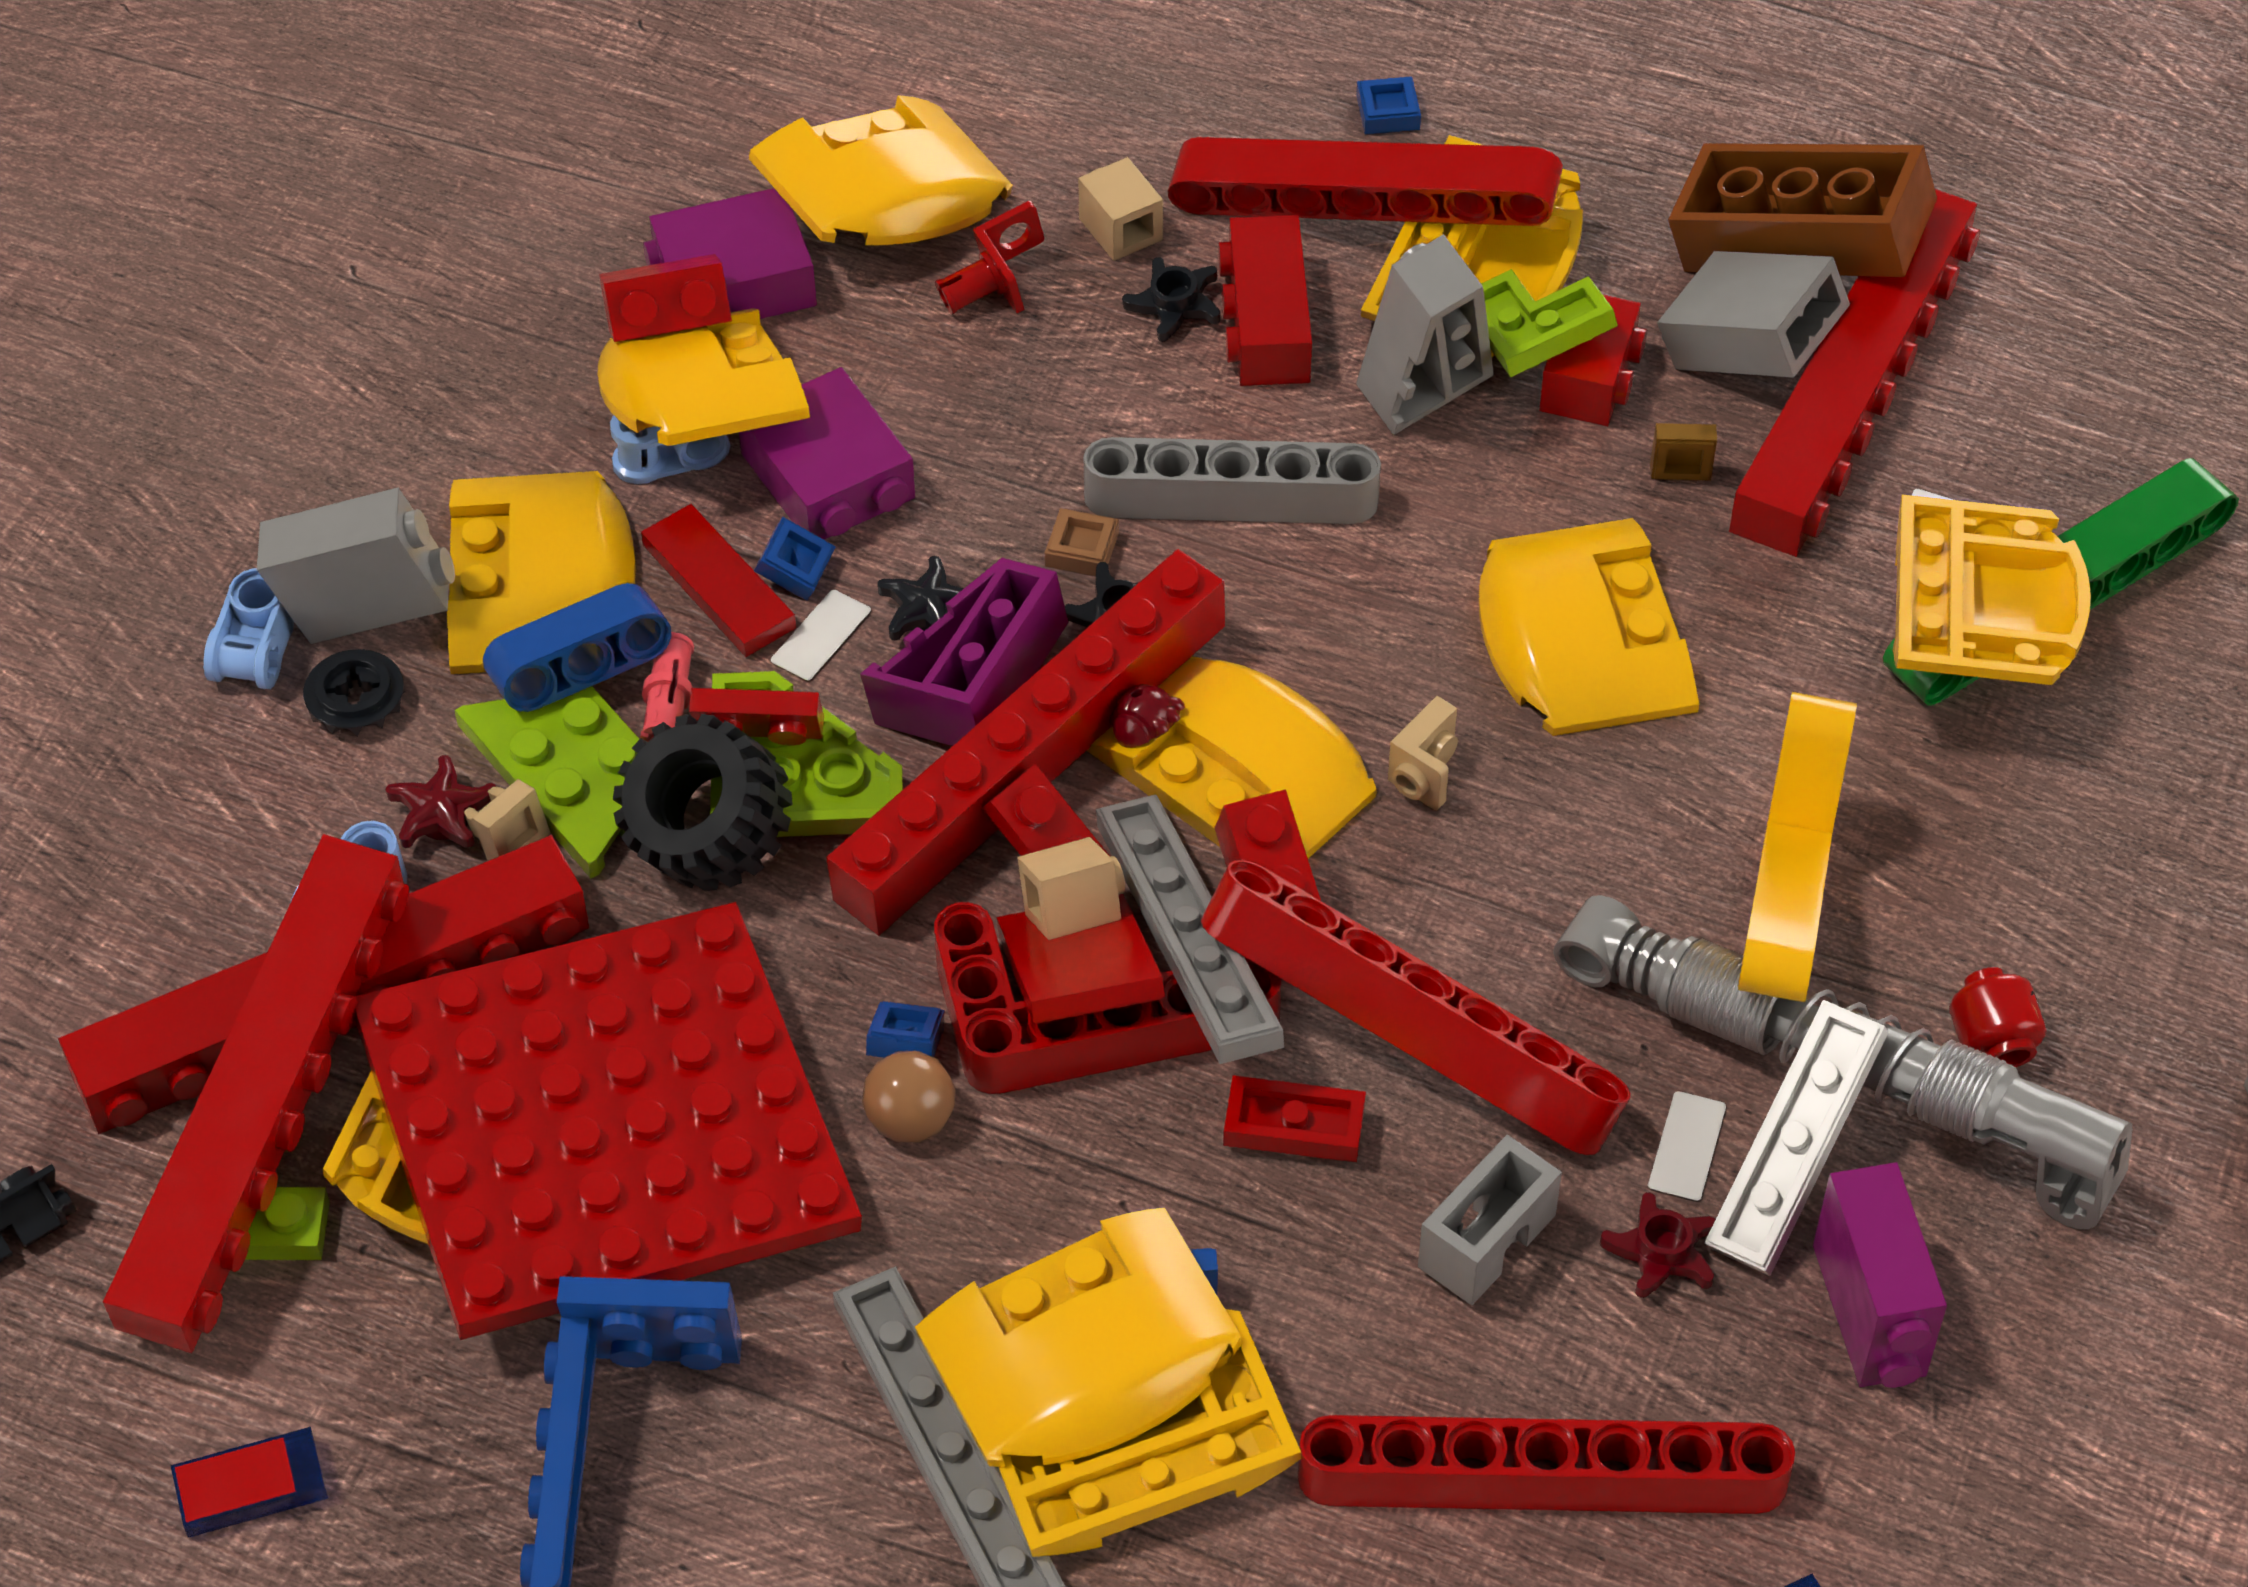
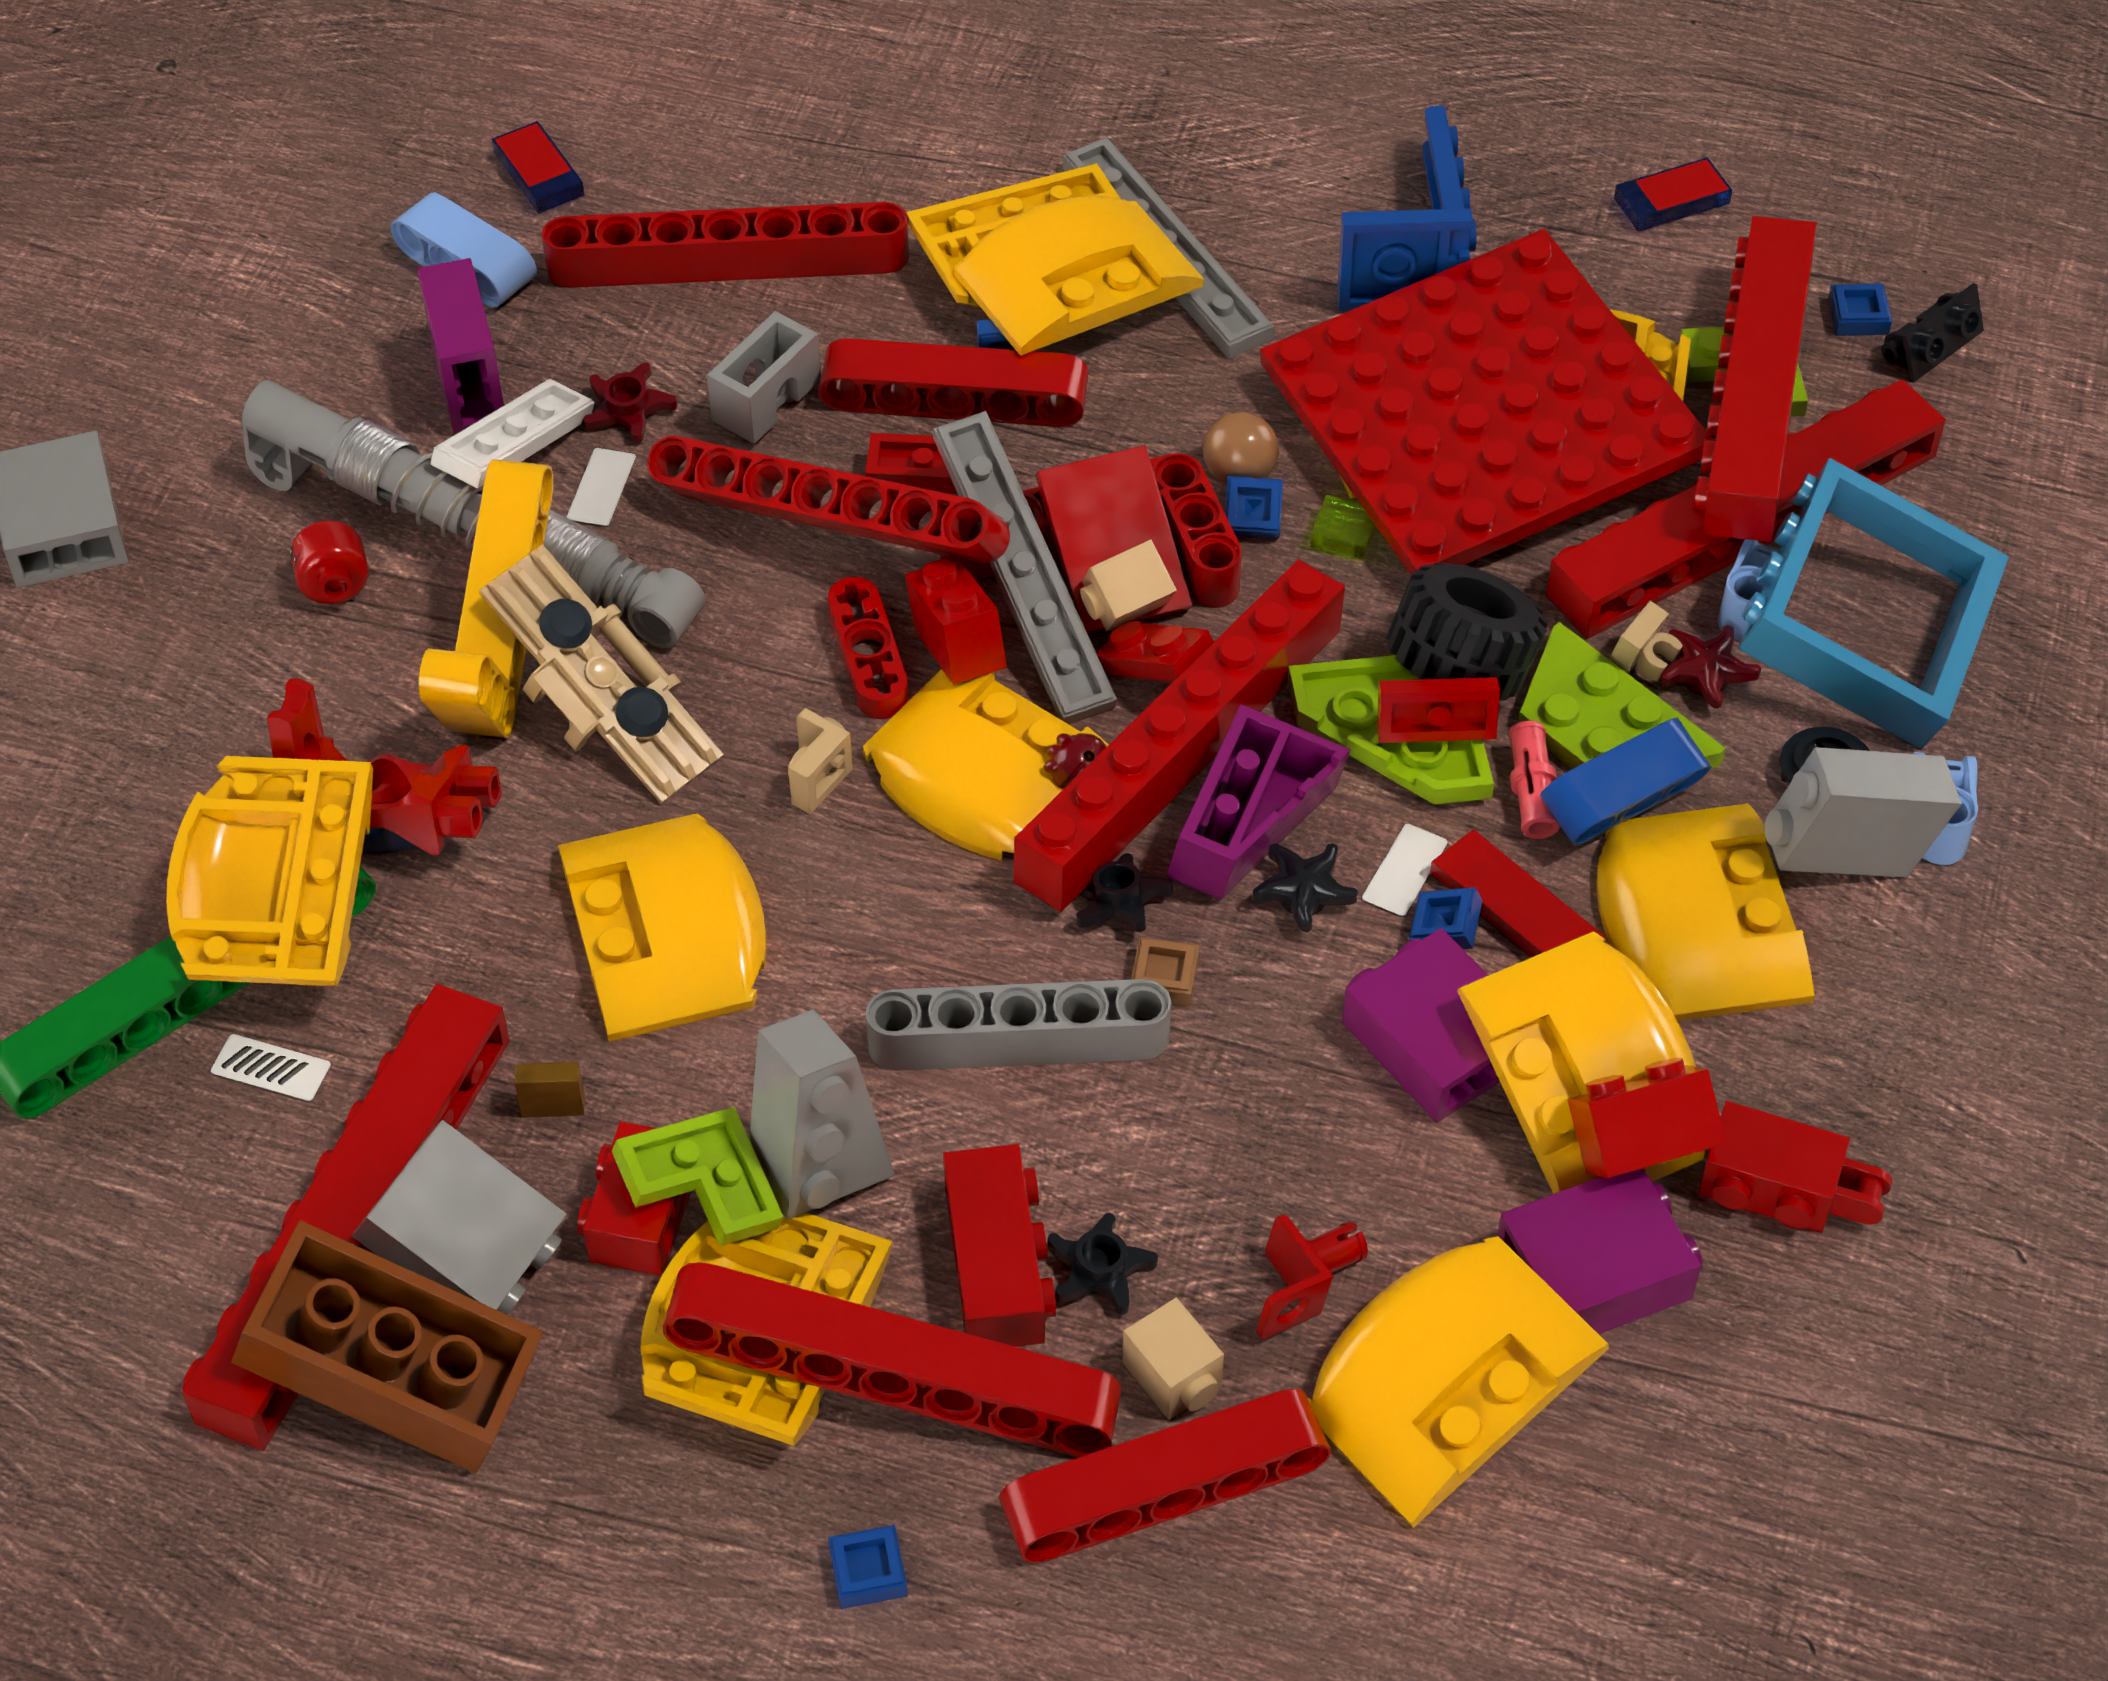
camera: 175 degrees right, 0 degrees up
(75, 1279) = (1859, 309): none -> blue tile
(119, 849) = (1838, 672): none -> dark azure window
(537, 316) = (1790, 1172): none -> red brick
(808, 1009) = (1342, 528): none -> clear neon green tile
(1148, 128) = (1164, 1475): none -> red beam
(1267, 1225) = (953, 382): none -> red beam
(1374, 873) = (863, 667): none -> red beam
(1635, 810) = (588, 686): none -> tan piece
(1902, 1488) = (444, 232): none -> light blue beam
(1959, 738) = (409, 800): none -> red hips

